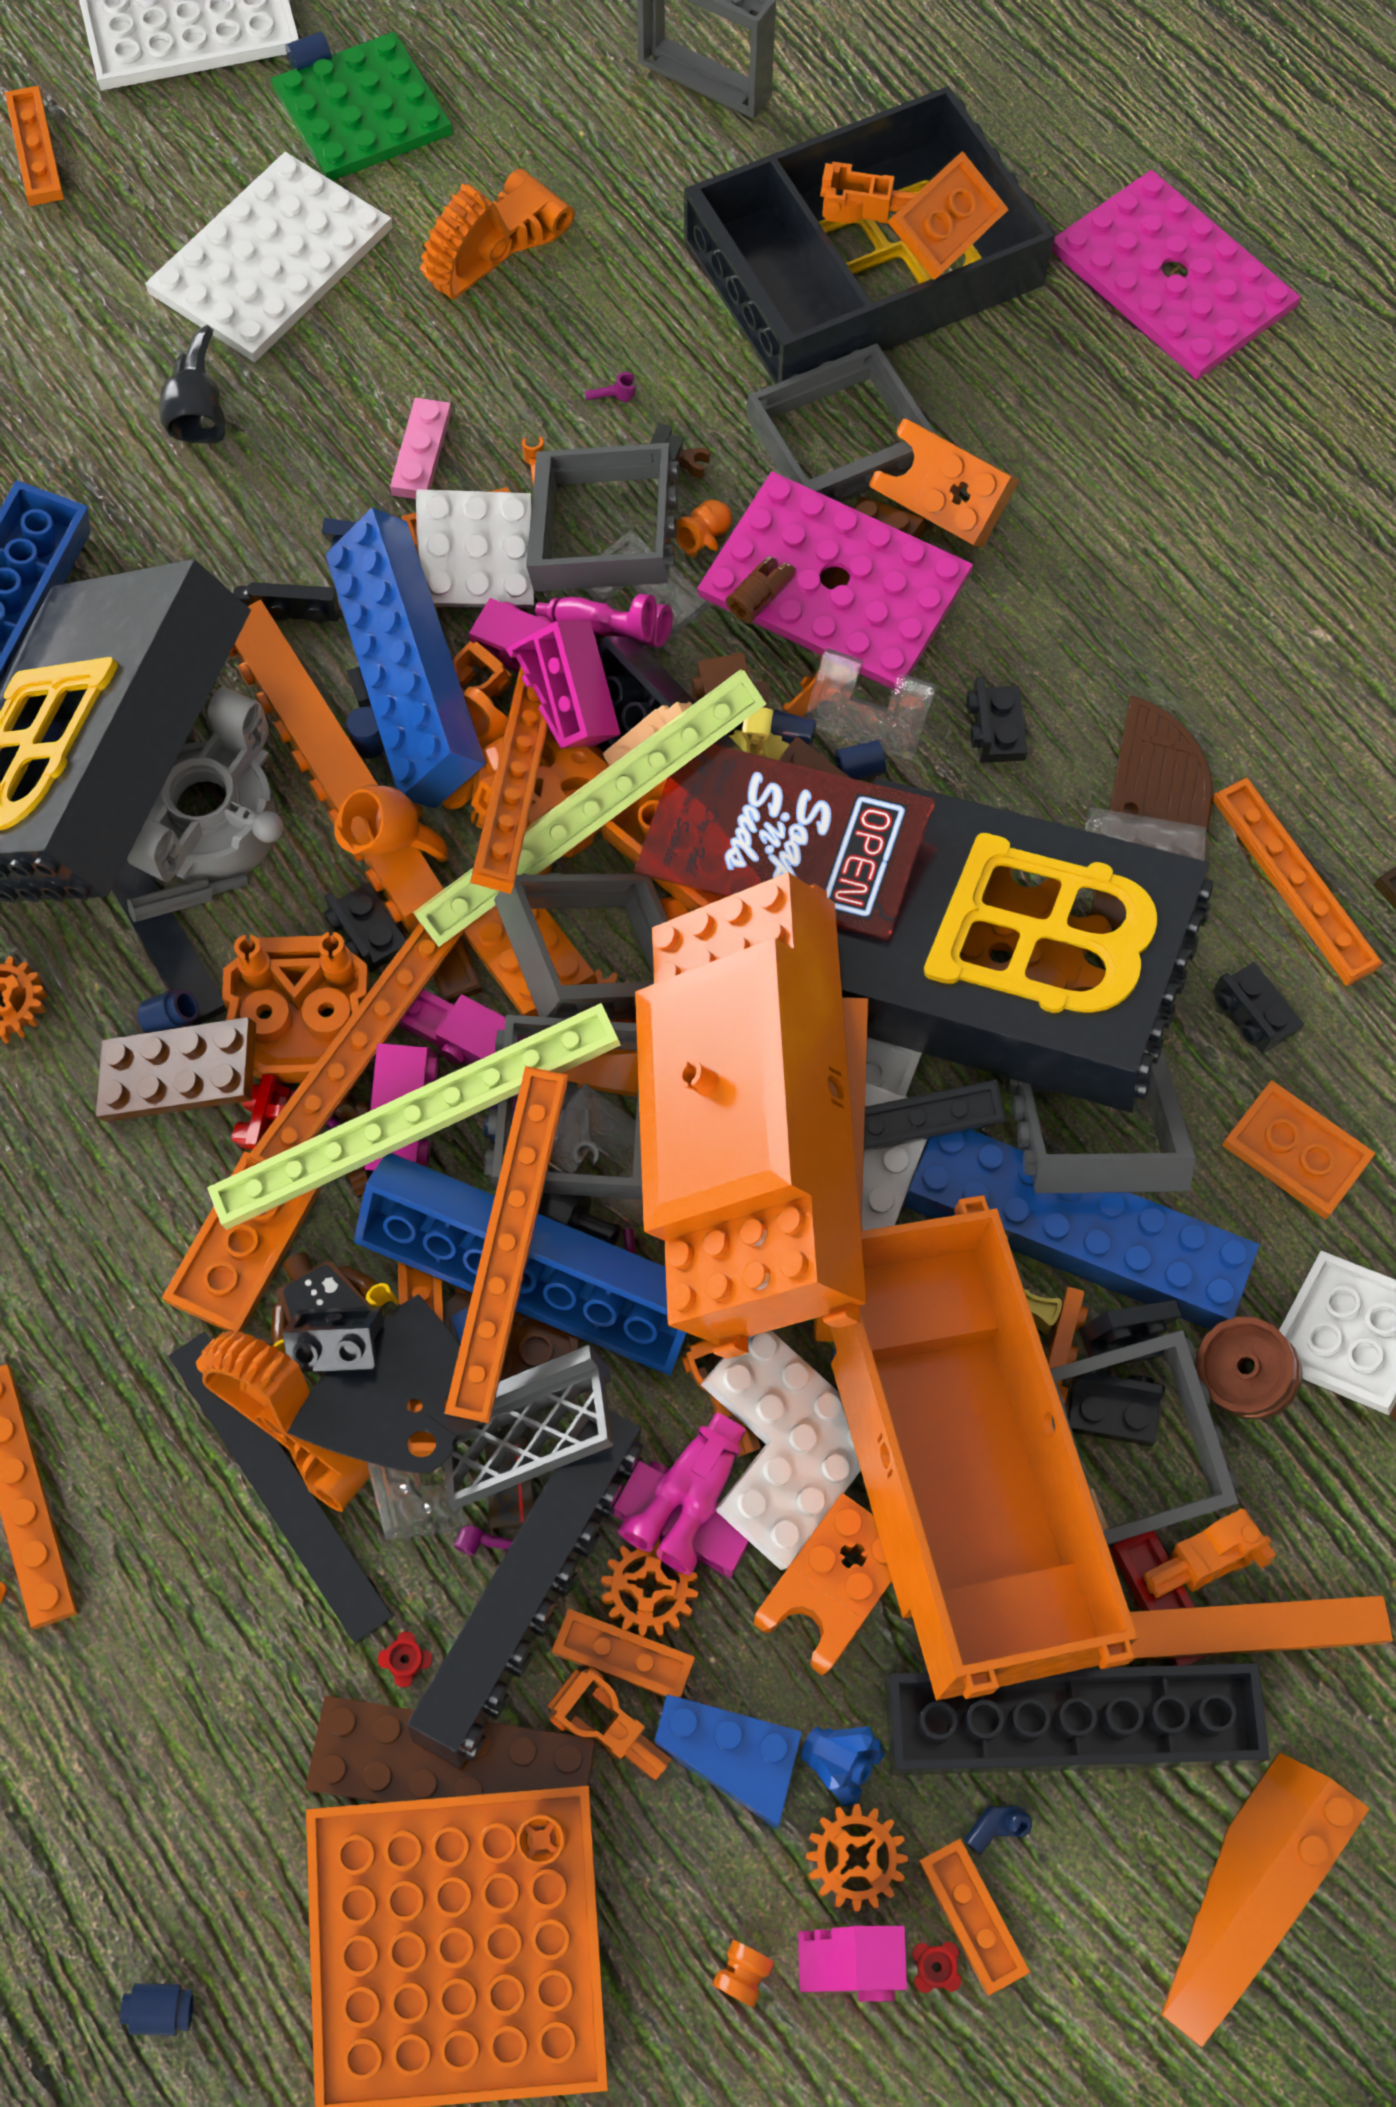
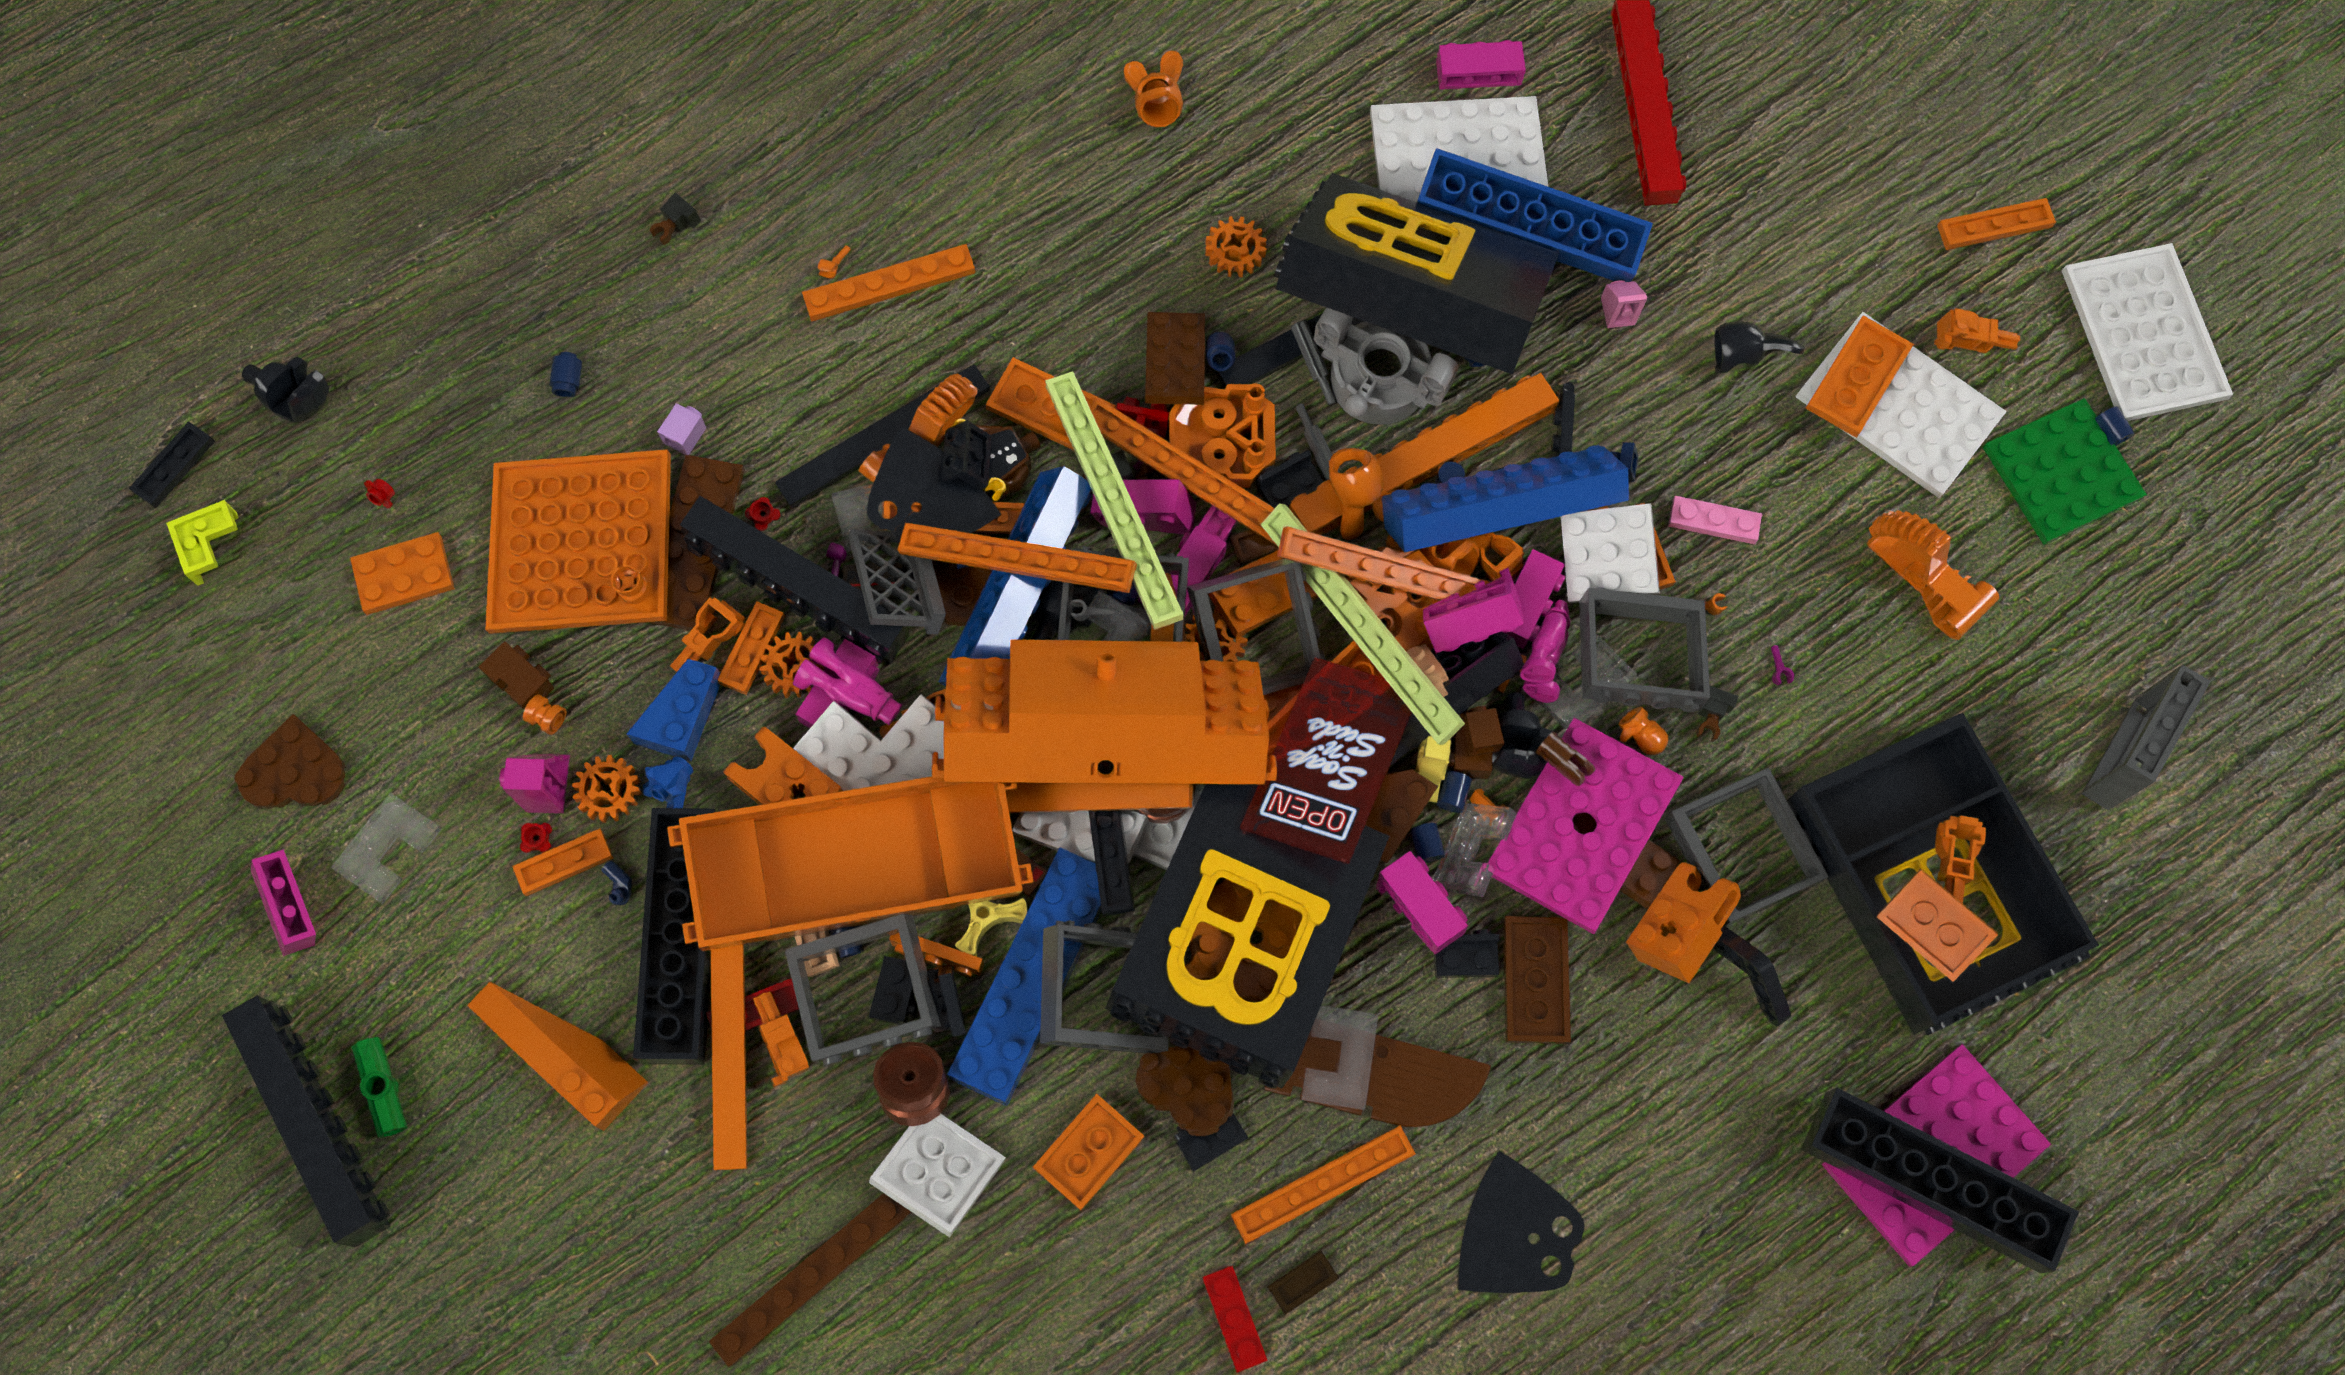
camera: 90 degrees right, 5 degrees up
(119, 529) = (1622, 303): none -> bright pink slope
(180, 177) = (1969, 331): none -> orange piece
(239, 281) = (1859, 376): none -> orange plate
(261, 1797) = (682, 428): none -> lavender brick
(312, 892) = (1316, 441): none -> dark grey axle
(671, 2036) = (515, 675): none -> reddish brown brick
(722, 641) = (1521, 738): none -> black piece
(953, 747) = (1422, 902): none -> dark pink wedge
(1001, 404) = (1761, 974): none -> black beam
(1021, 646) = (1536, 980): none -> reddish brown plate
(1212, 1019) = (1189, 1087): none -> reddish brown plate
(1215, 256) = (1940, 1181): none -> black brick
(1339, 697) = (1496, 1234): none -> black piece

